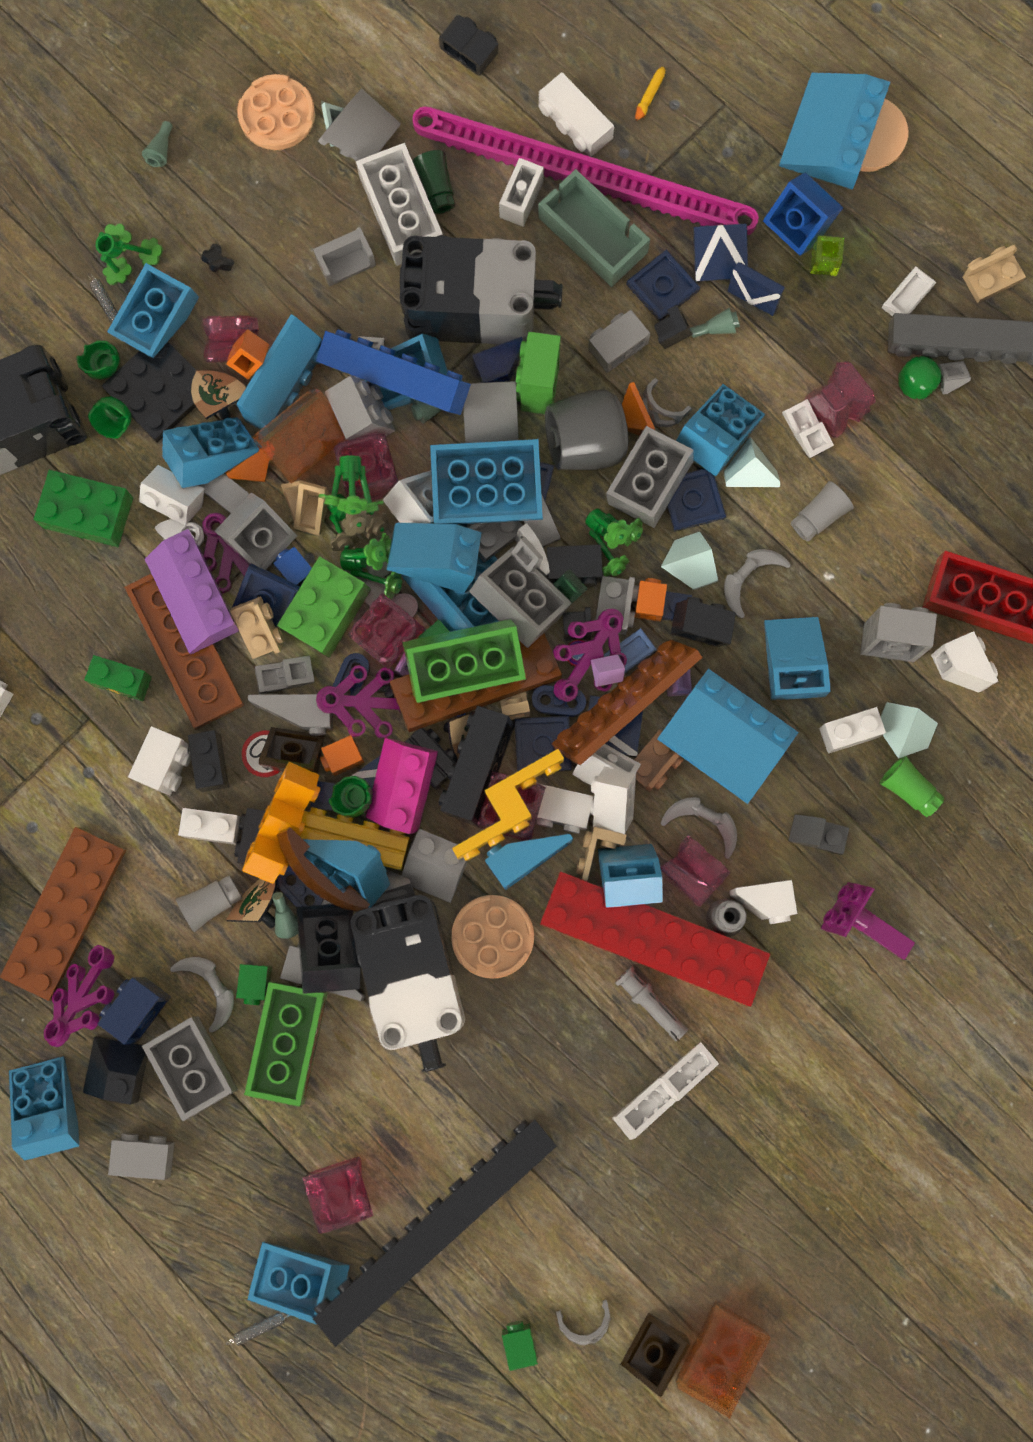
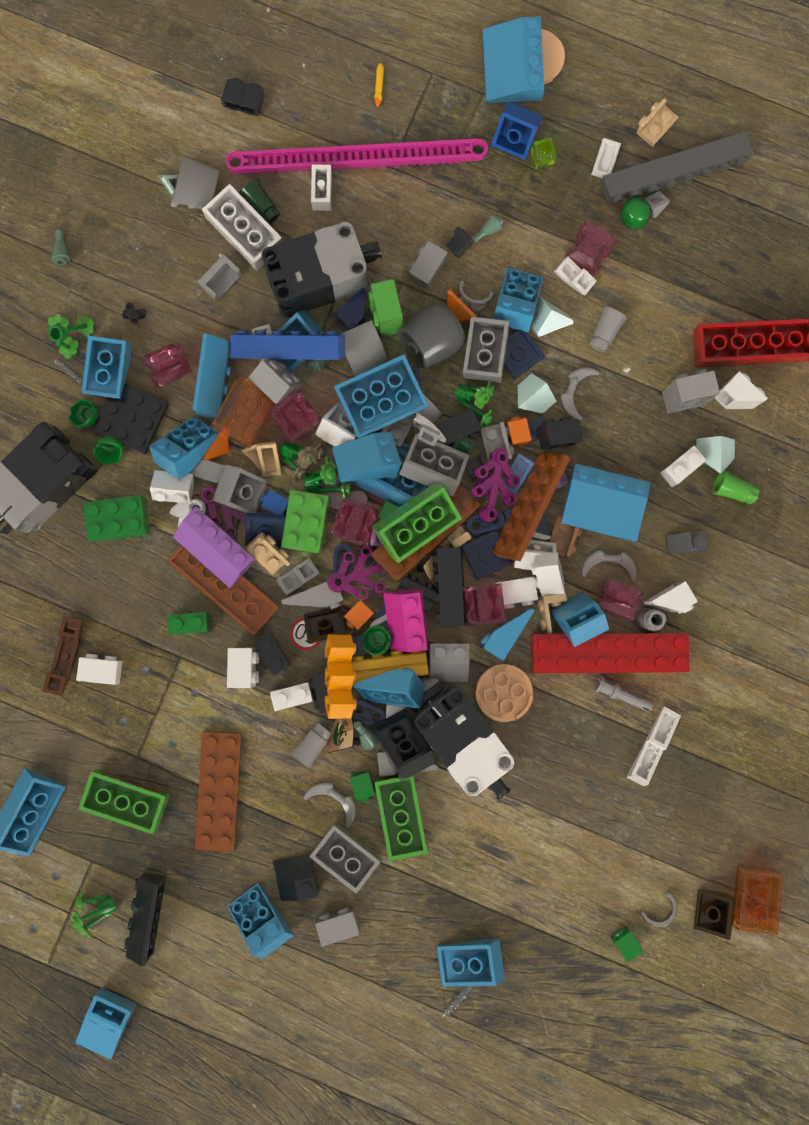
camera: 30 degrees left, 5 degrees up
(76, 998) = (251, 865): magenta plant -> none
(133, 1009) = (293, 836): dark blue brick -> none
(215, 392) = (173, 405): shield -> none
(247, 354) = (185, 372): orange brick -> none
(276, 112) = (130, 194): light nougat tile -> none
(293, 849) = (358, 692): reddish brown slope -> none
(337, 1195) = (474, 898): clear pink piece -> none
(351, 470) = (289, 424): plant -> none
(432, 1233) = (545, 897): black brick -> none
(509, 805) = (485, 606): yellow bracket -> none
(575, 115) = (335, 119): white brick -> none
(593, 228) = (380, 193): sand green piece -> none
(607, 670) = (511, 490): lavender slope -> none
(662, 285) = (441, 215): dark blue tile -> none
(719, 250) = (471, 177): dark blue tile -> none
(755, 288) = (505, 194): dark blue tile -> none
(796, 659) = (628, 433): dark azure slope -> none
(850, 912) = (728, 586): magenta piece -> none

